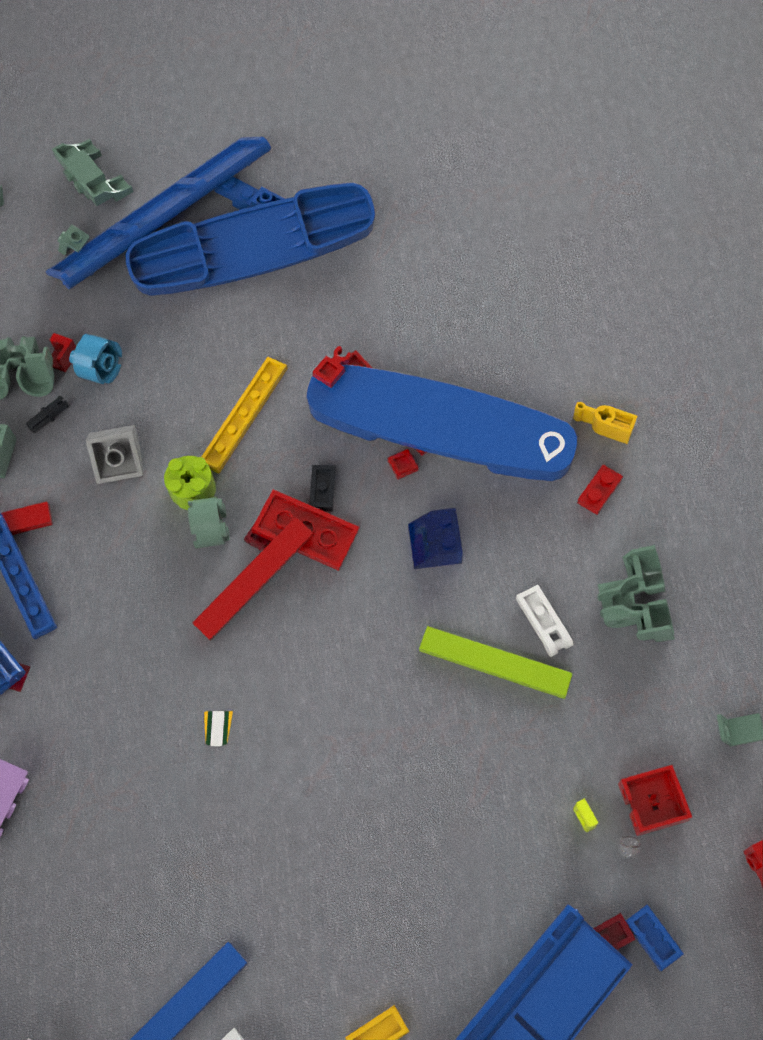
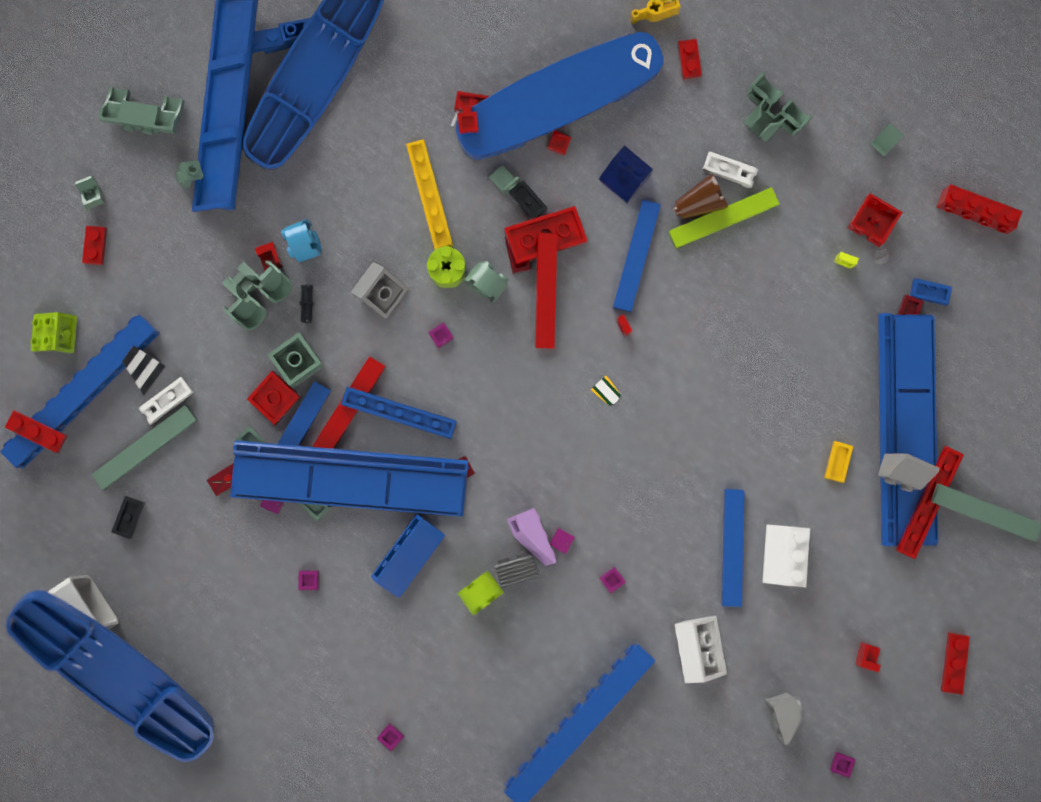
camera: 45 degrees left, 20 degrees up
(22, 834) = (561, 540): none -> magenta tile
(25, 926) = (612, 580): none -> magenta tile
(125, 538) = (441, 335): none -> magenta tile
(294, 676) = (624, 325): none -> red tile
(318, 452) = (504, 180): none -> sand green bracket
(372, 624) = (636, 256): none -> blue tile
(487, 621) = (701, 199): none -> reddish brown cone

